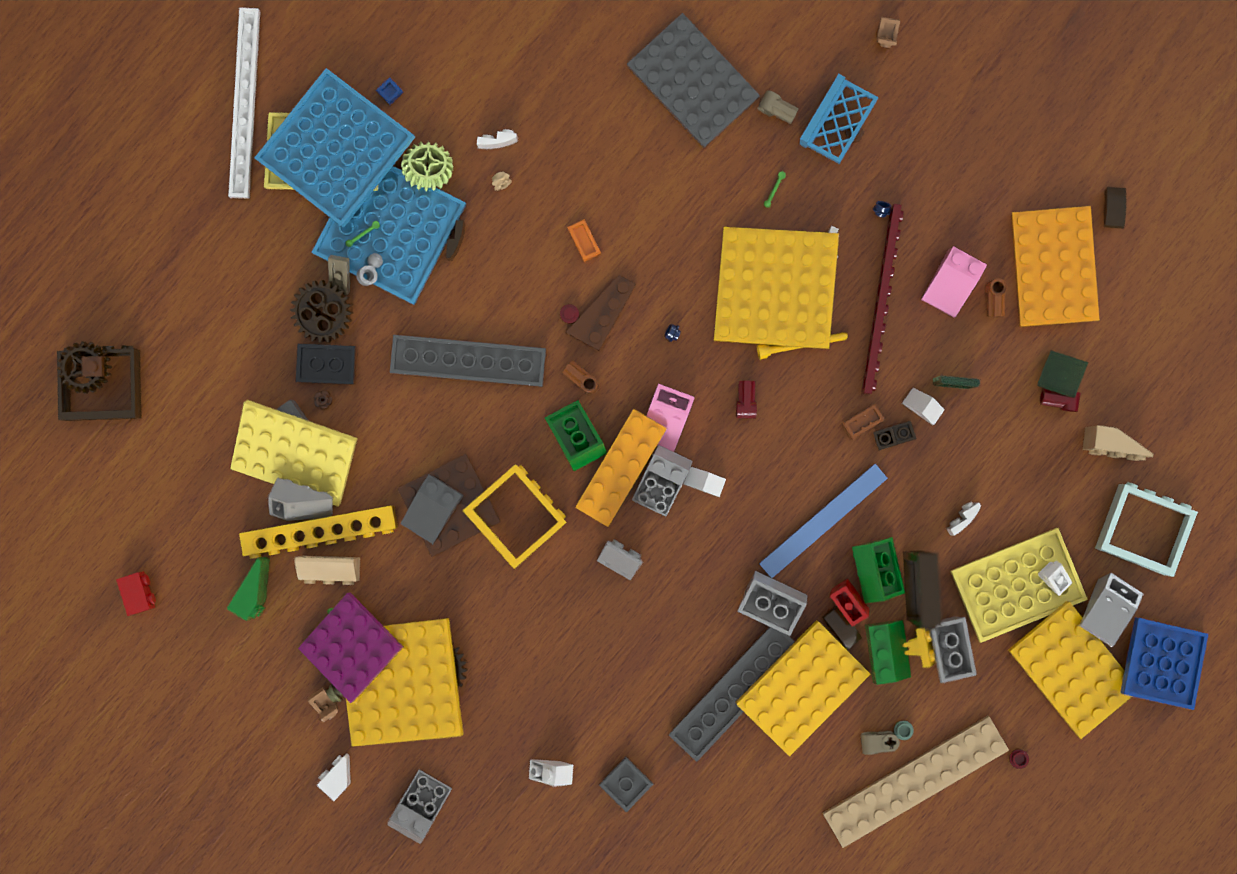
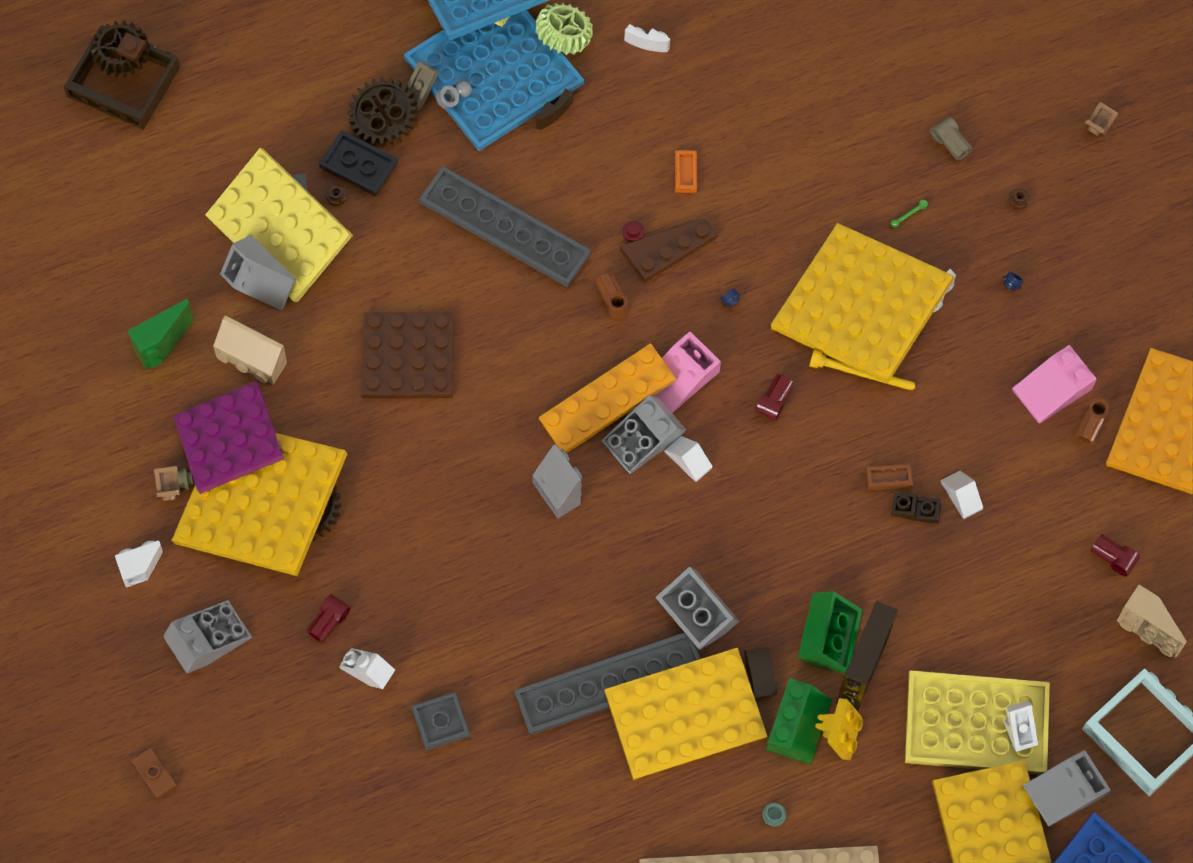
camera: 25 degrees right, 20 degrees down
(136, 593) = (40, 285): red brick -> none
(250, 540) = (274, 310): yellow brick -> none
(375, 225) = (482, 58): bright green hinge -> none
(431, 508) = (390, 342): dark grey slope -> none
(501, 180) = (631, 77): tan plate -> none
(501, 745) = (331, 613): none -> dark red piece
(545, 501) = (448, 436): yellow window -> none
(576, 435) = (577, 349): green slope -> none
(693, 80) = (876, 76): dark grey plate -> none
(823, 520) = (795, 556): medium blue tile -> none
(826, 108) = (995, 162): dark azure fence -> none
(849, 602) = (781, 647): red brick -> none
(876, 742) = (737, 810): dark tan piece -> none
(883, 292) = (964, 373): dark red plate -> none
(953, 650) = (868, 746): light grey slope -> none
(956, 382) = (1007, 479): clear green tile -> none
(968, 514) = (957, 620): white slope -> none
(1062, 374) = (1128, 527): clear green tile -> none

